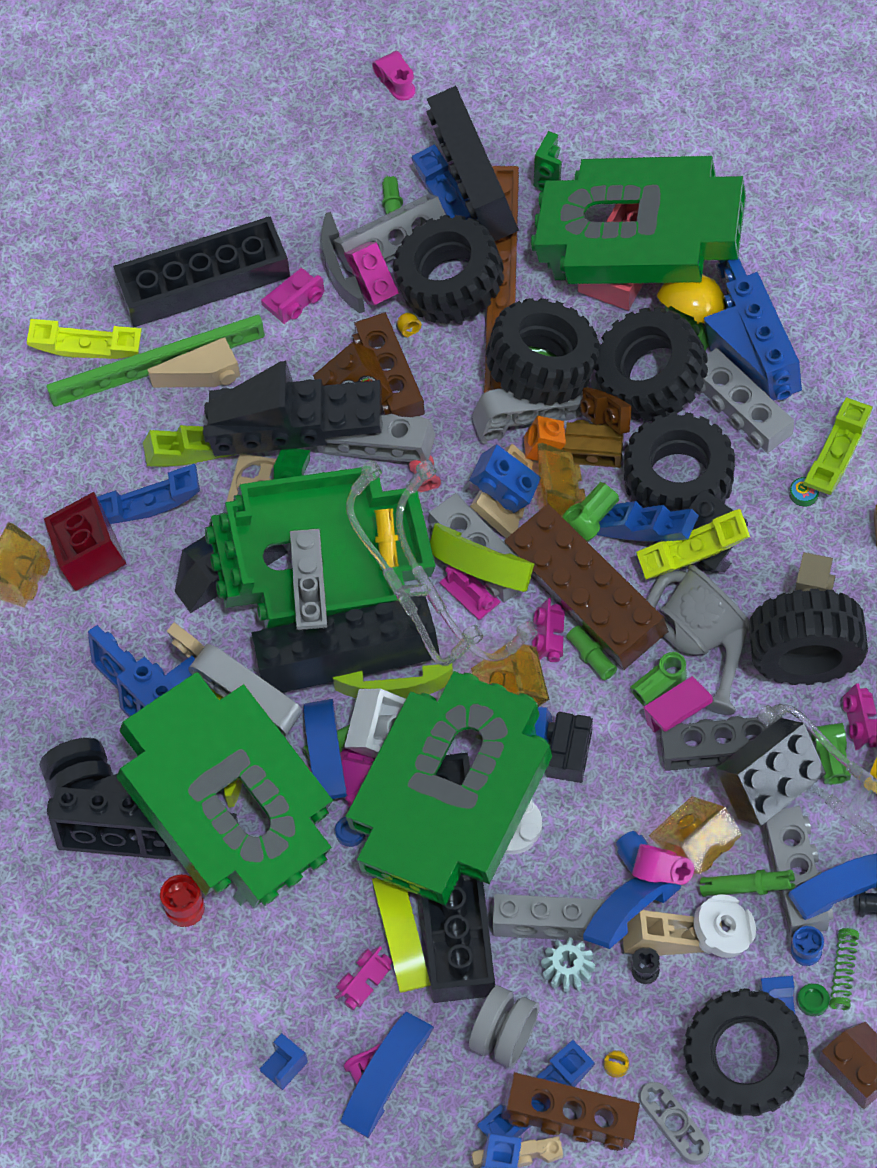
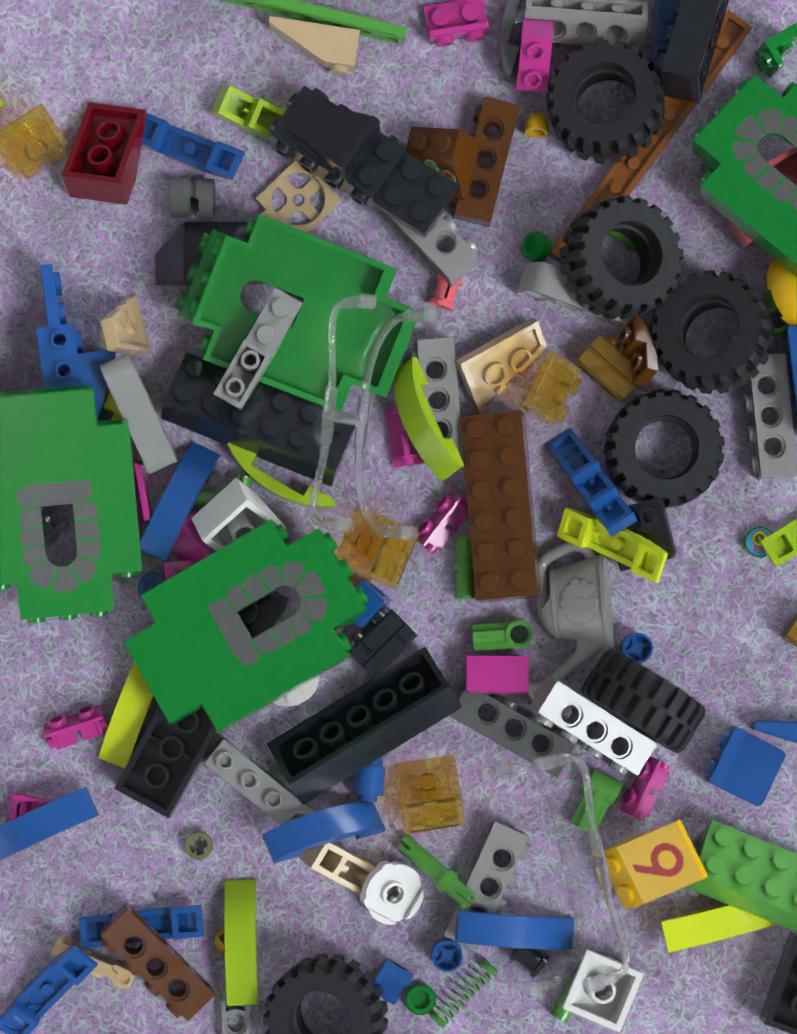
camera: 30 degrees right, 25 degrees up
(167, 533) = (182, 196): none -> dark grey wheel
(291, 463) = (329, 209): green bracket -> none
(386, 536) = (360, 344): yellow pin -> none
(469, 398) = (536, 246): none -> green tile
(503, 1026) = (152, 856): light grey wheel -> none
(505, 478) = (501, 359): blue brick -> none
(537, 991) = (190, 841): none -> olive bush
(544, 431) = (569, 336): orange brick -> none
(581, 965) = (238, 826): light aqua gear -> none
(586, 515) = (548, 440): bright green piece -> none
(601, 810) = (363, 725): none -> black brick
(632, 1051) = (240, 942): none -> lime slope
(644, 974) = (300, 887): black bush -> none
(662, 866) = (374, 811): dark pink piece -> none
(770, 771) = (520, 799): brick -> none
(797, 684) = (634, 746): none -> brick
(815, 573) = (692, 646): dark tan brick -> none

